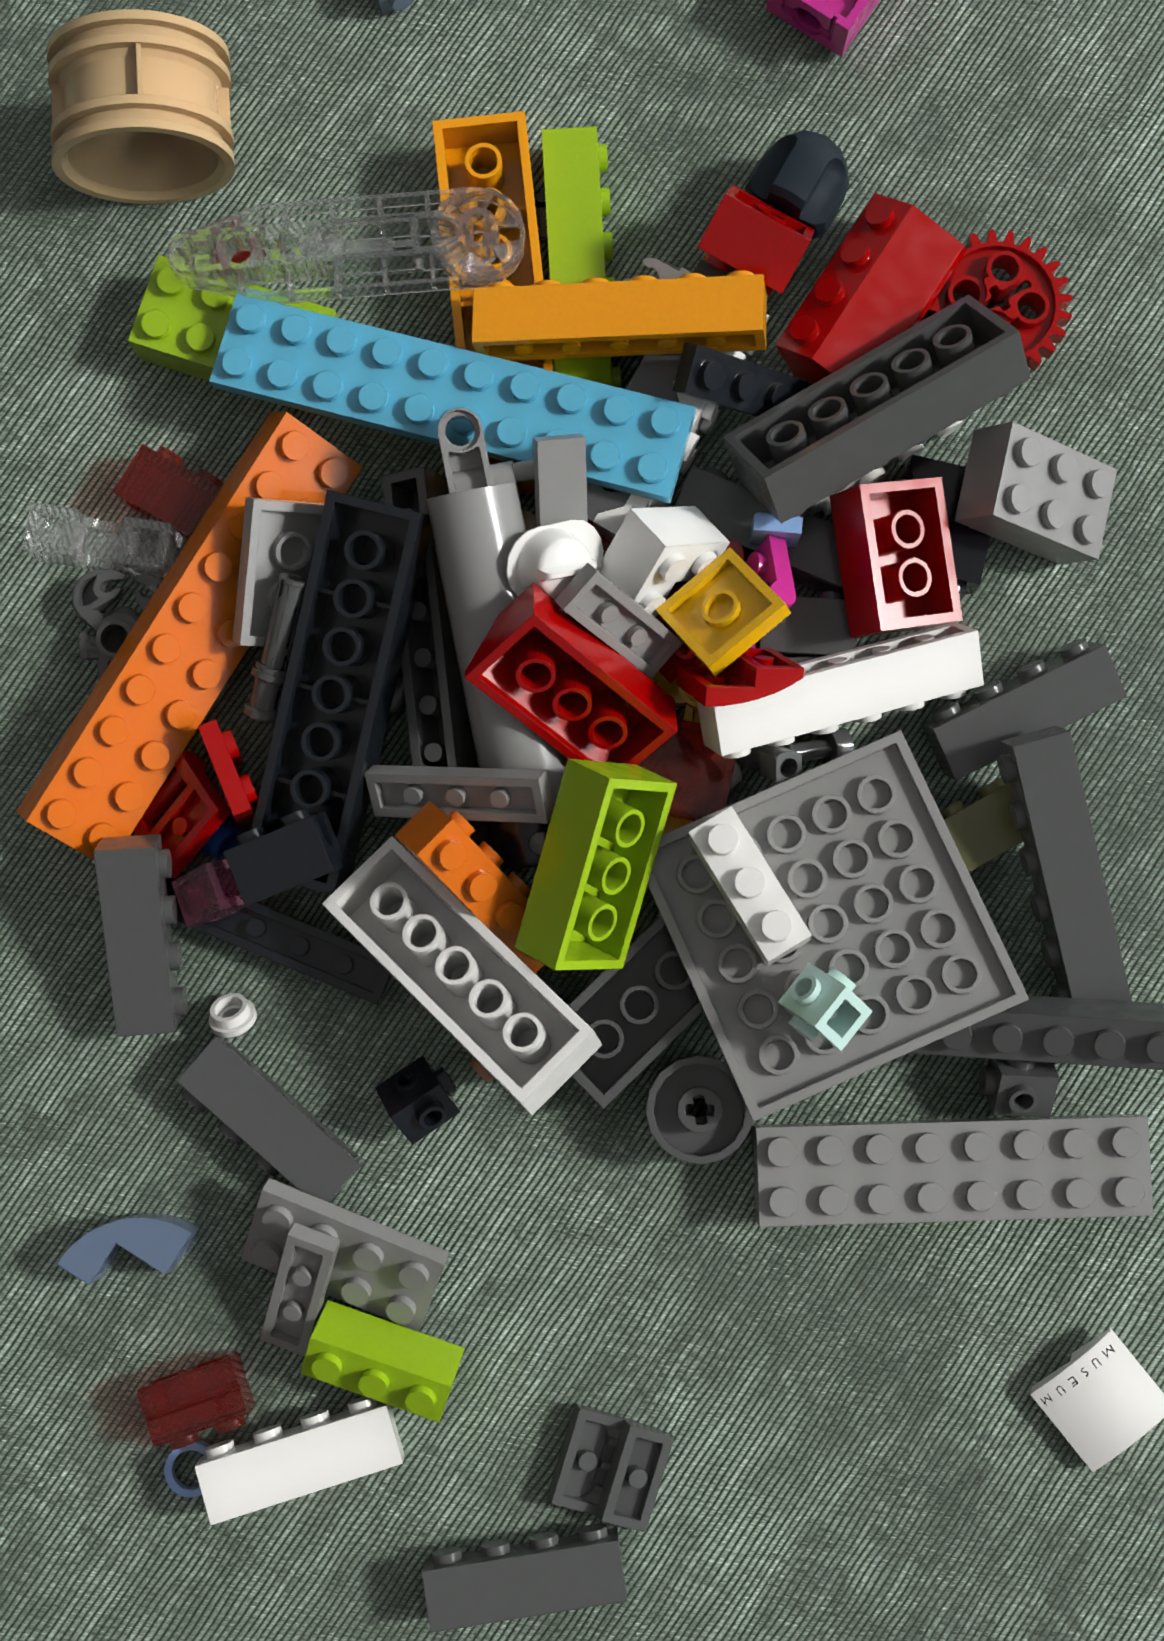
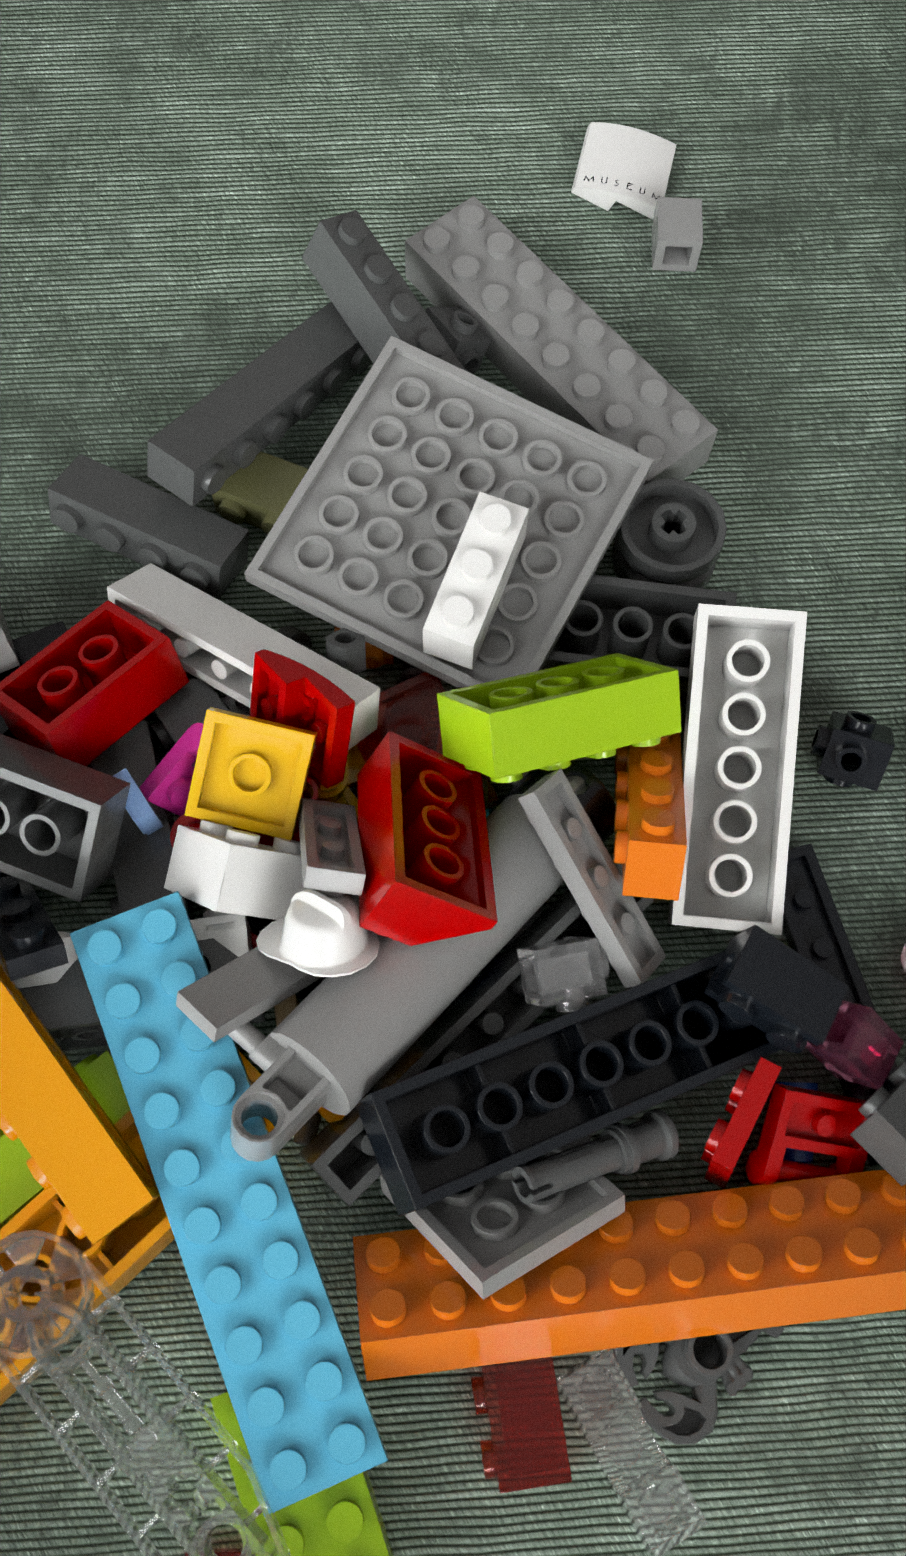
camera: 135 degrees left, 15 degrees down
(414, 726) = (563, 972): none -> clear brick
(824, 1006) = (525, 455): light aqua brick -> none
(989, 1378) = (679, 225): none -> light grey brick

